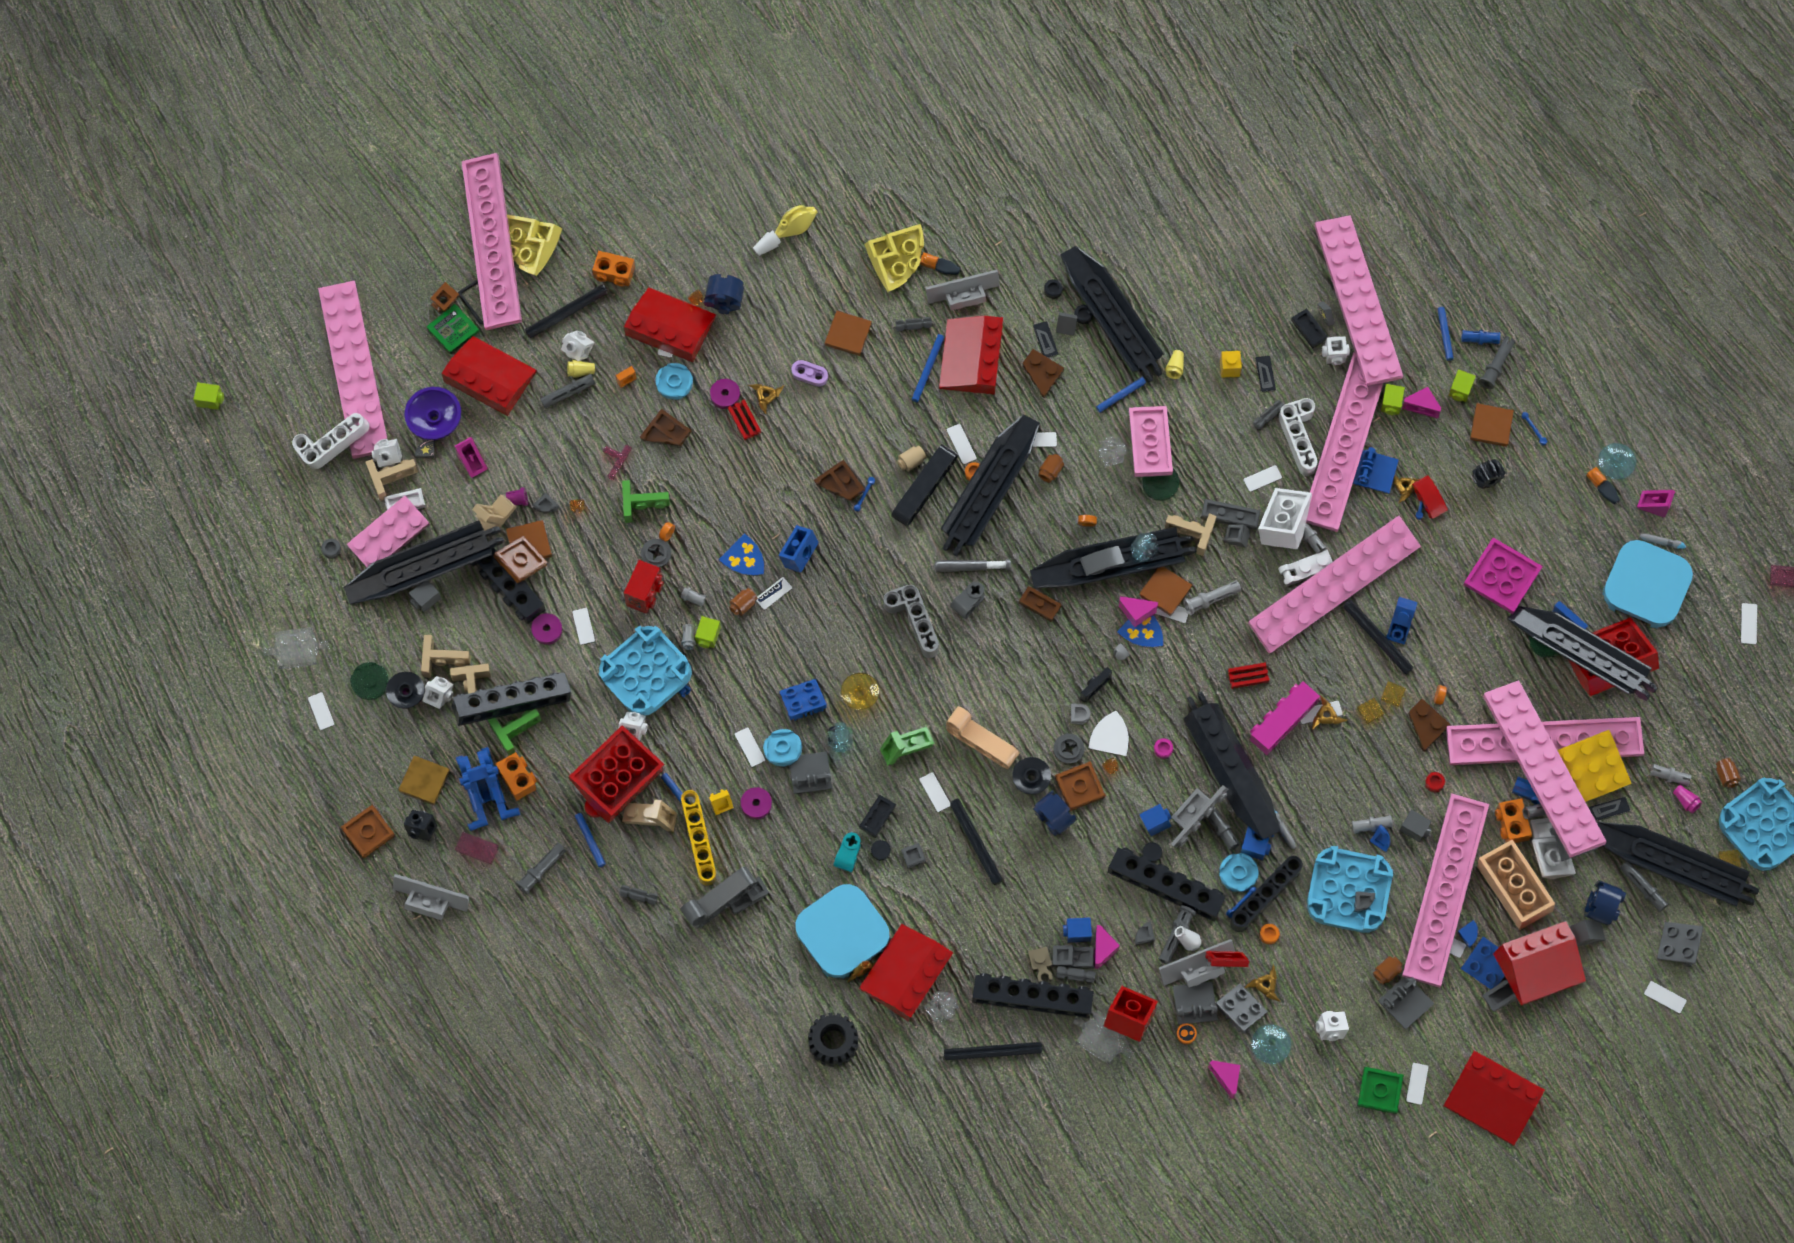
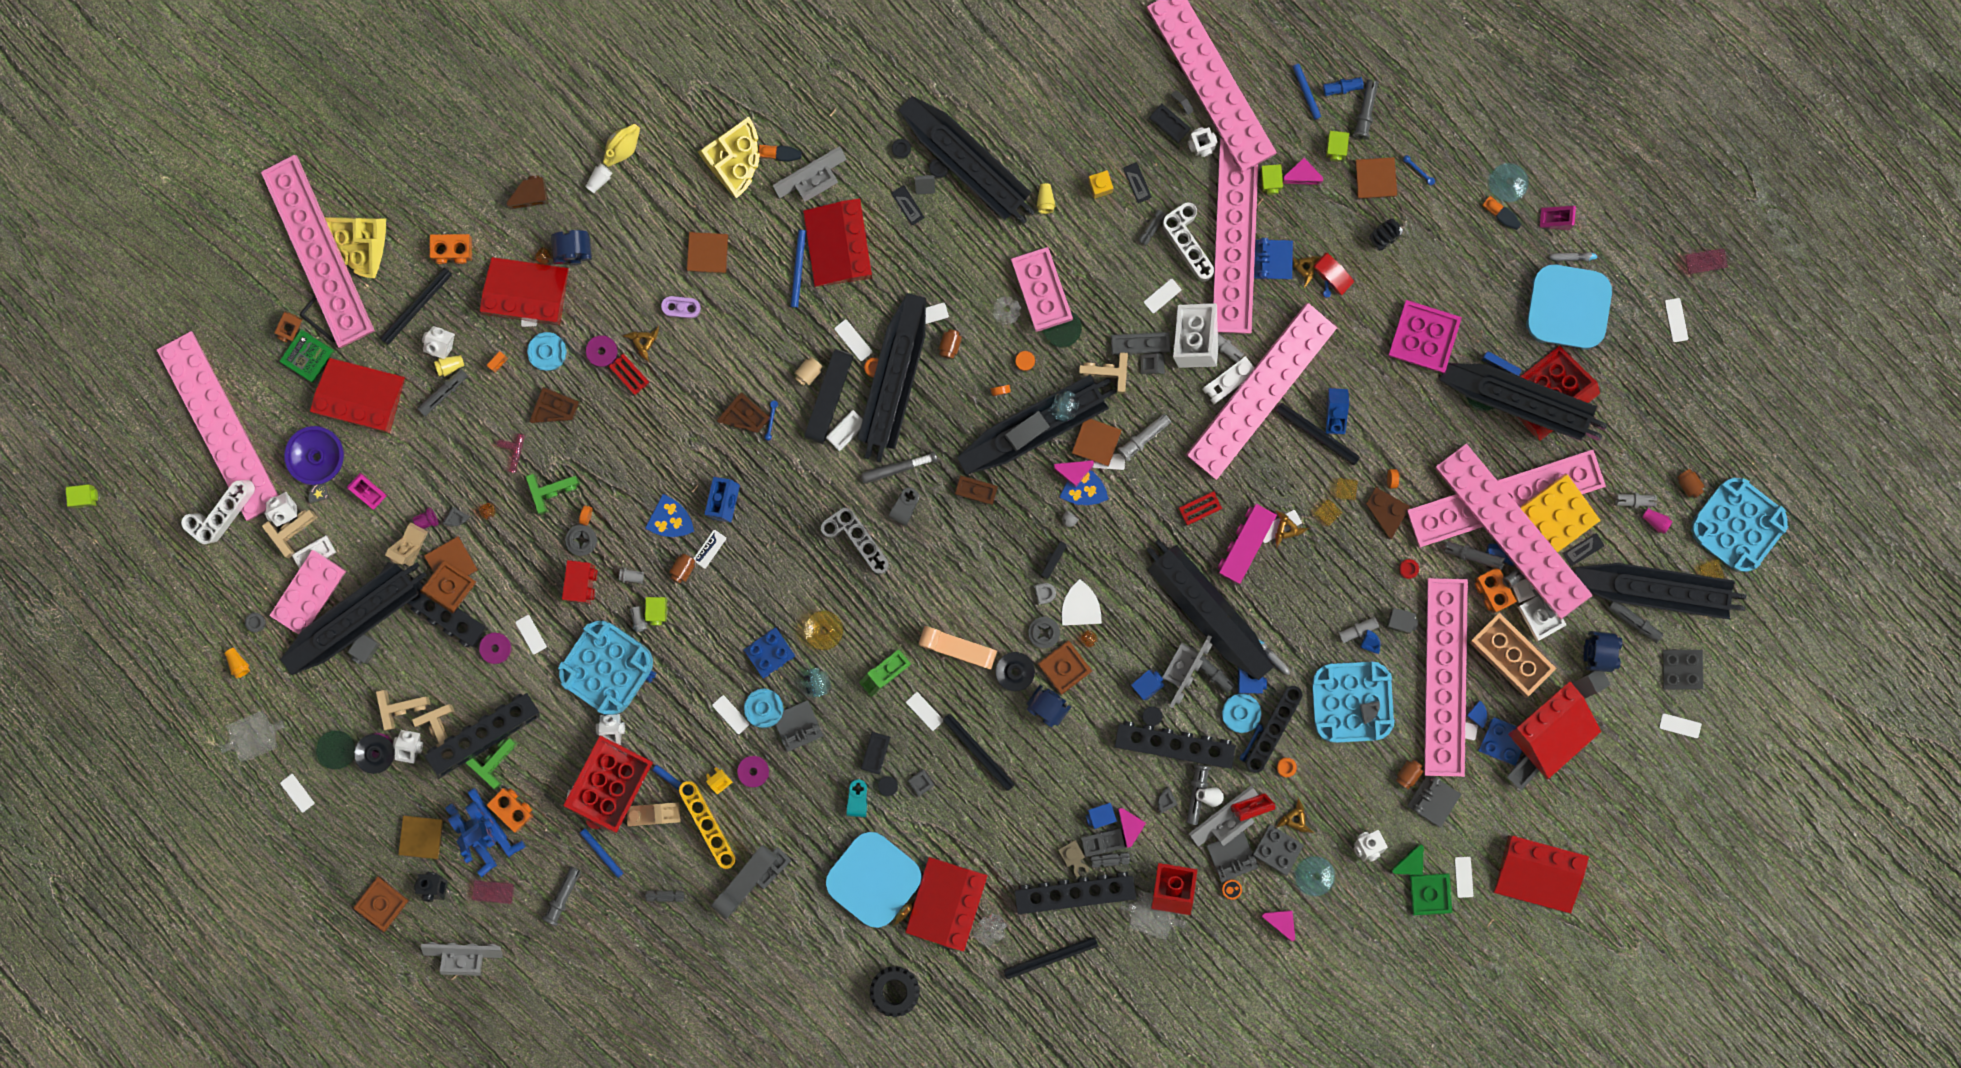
camera: 15 degrees left, 15 degrees up
(303, 581) = (236, 663): none -> light orange cone
(699, 241) = (529, 193): none -> reddish brown slope
(914, 323) = (770, 225): dark grey axle -> none
(930, 521) = (845, 431): none -> white tile
(1042, 371) = (914, 241): reddish brown wing -> none
(1117, 502) = (1025, 361): none -> orange tile
(1121, 394) = (999, 244): blue bar -> none
(1163, 748) = (1136, 606): dark pink tile -> none
(1367, 1054) = (1411, 863): none -> green slope
(1494, 779) = (1466, 552): none -> dark grey pin

